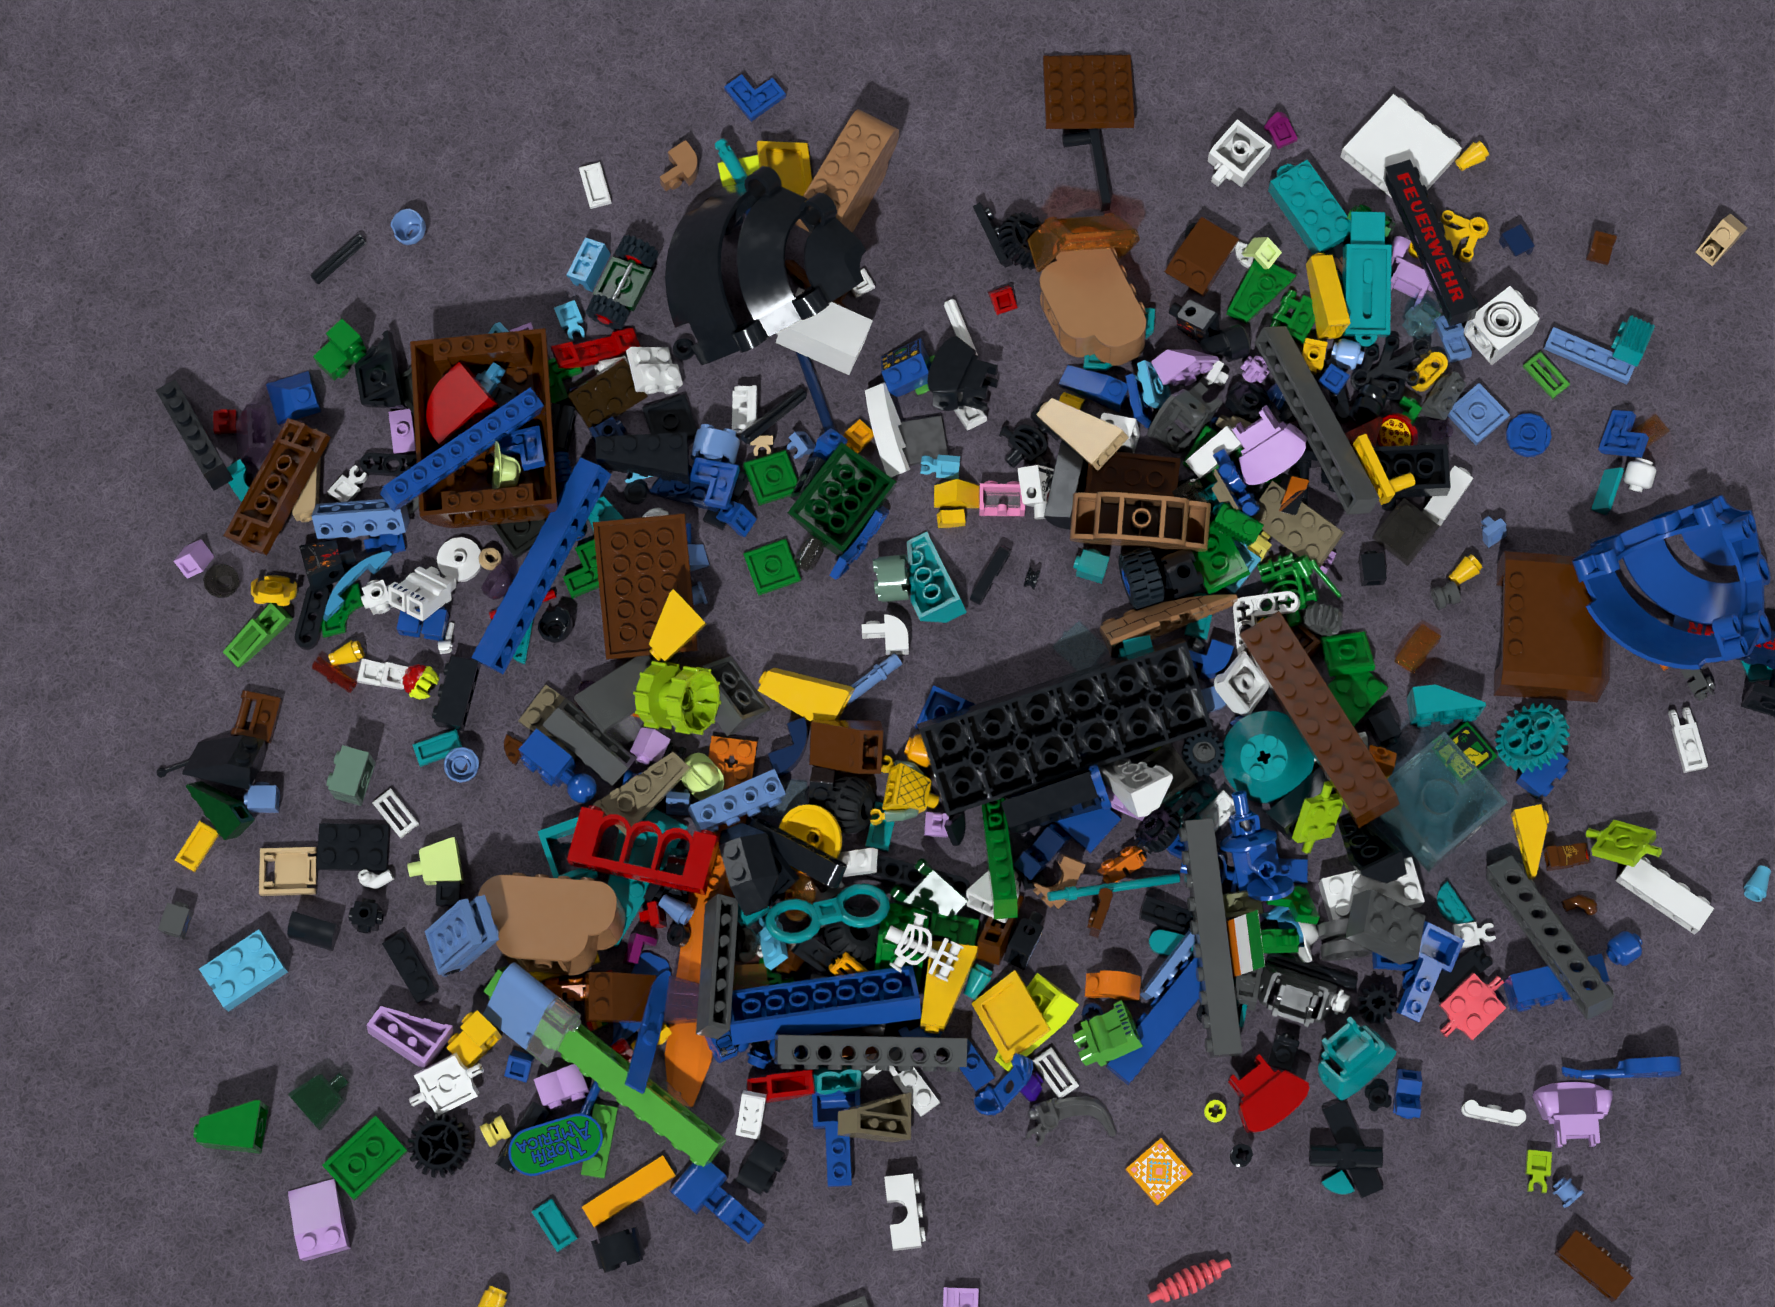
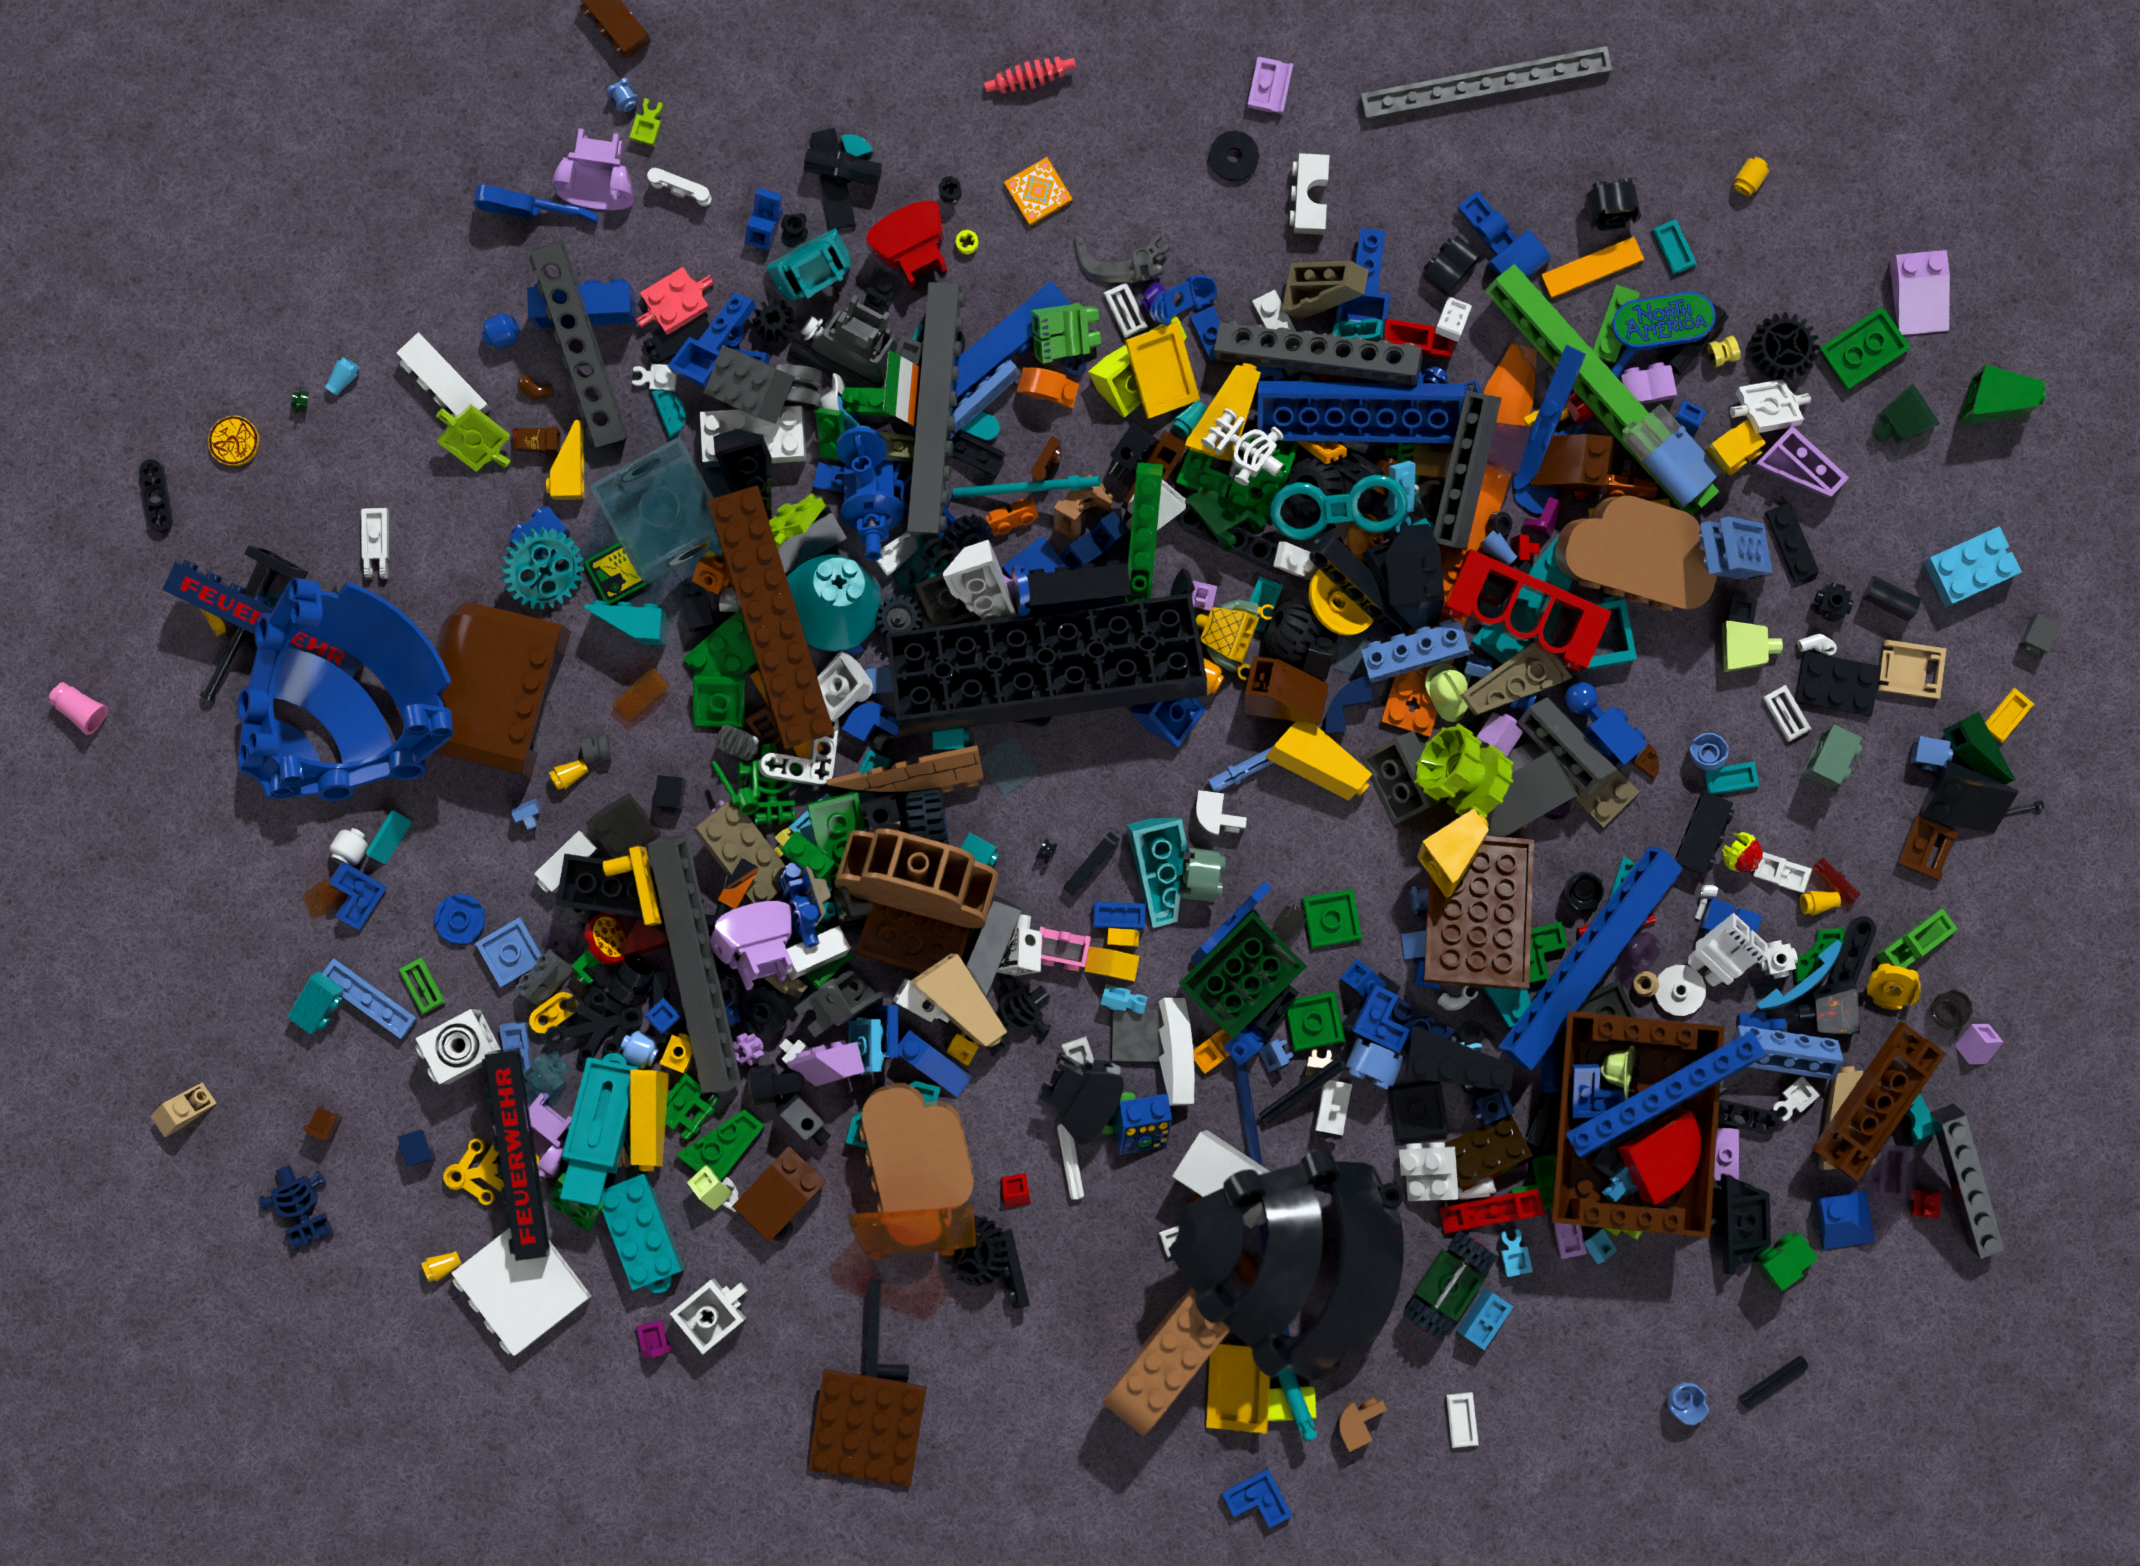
camera: 165 degrees left, 10 degrees up
(957, 536) = (1119, 915): none -> blue plate
(979, 1253) = (1234, 141): none -> black tile
(1614, 193) = (289, 1182): none -> dark blue piece

